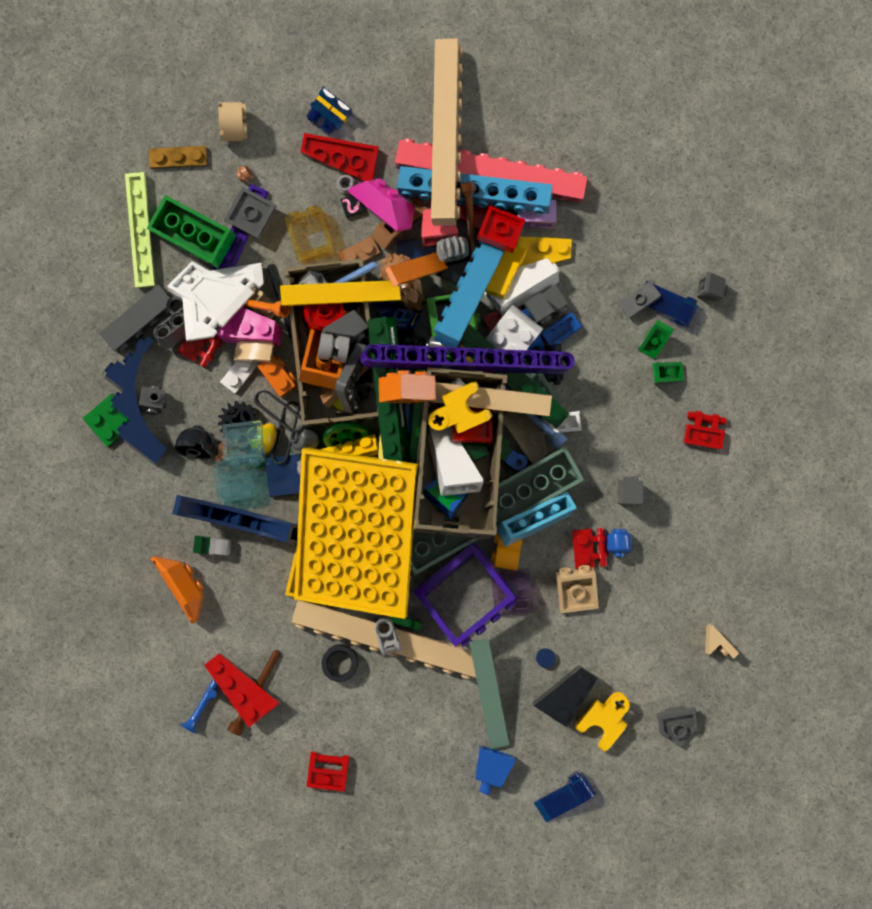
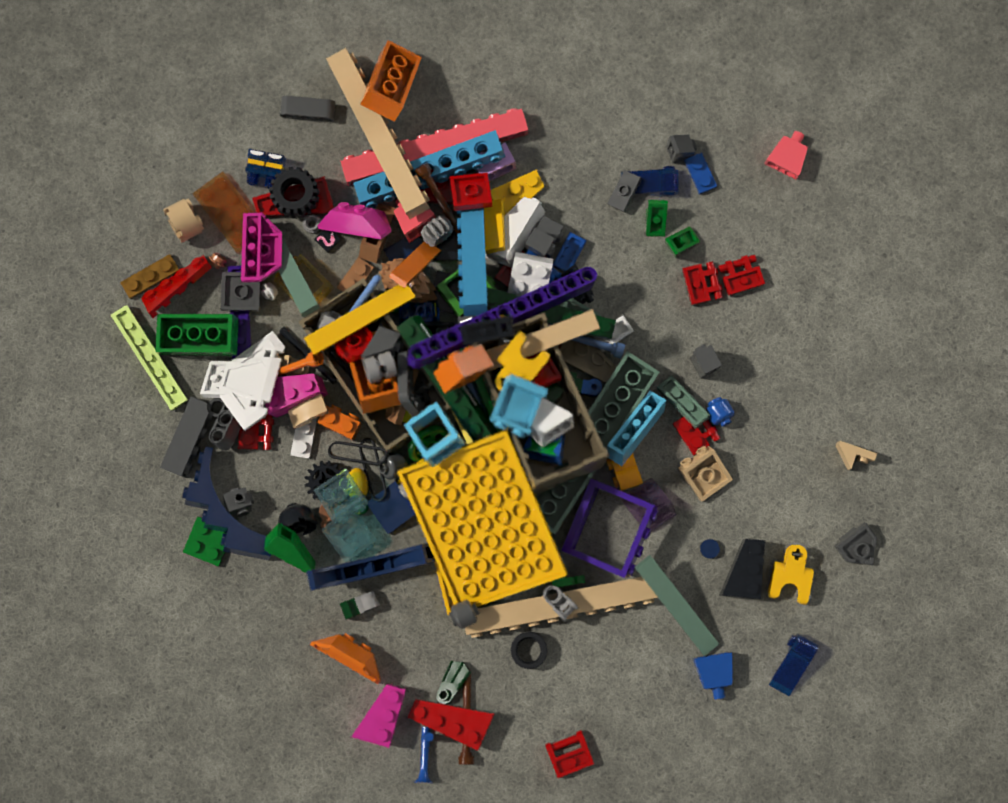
camera: 30 degrees left, 5 degrees down
(175, 464) = (288, 546): none -> green slope
(180, 655) = (381, 720): none -> dark pink wedge
(197, 176) = (174, 285): none -> red wing
(259, 654) = (452, 681): none -> piece
(276, 225) = (269, 291): none -> white plate
(278, 135) = (224, 207): none -> clear orange plate
(286, 182) = (260, 248): none -> dark pink wedge
(297, 603) = (464, 614): none -> dark grey head
(301, 220) = (296, 283): none -> sand green tile
(341, 132) = (288, 178): none -> black tyre
(356, 450) = (444, 447): none -> medium azure window
(396, 76) = (305, 107): none -> dark grey beam
(437, 448) = (517, 405): none -> medium azure panel
(446, 365) = (487, 330): none -> black plate
(482, 90) = (391, 81): none -> orange brick
(591, 517) = (683, 402): none -> sand green tile
(660, 417) = (697, 286): none -> red plate
(717, 319) = (700, 173): none -> blue plate
(805, 344) = (788, 155): none -> coral torso

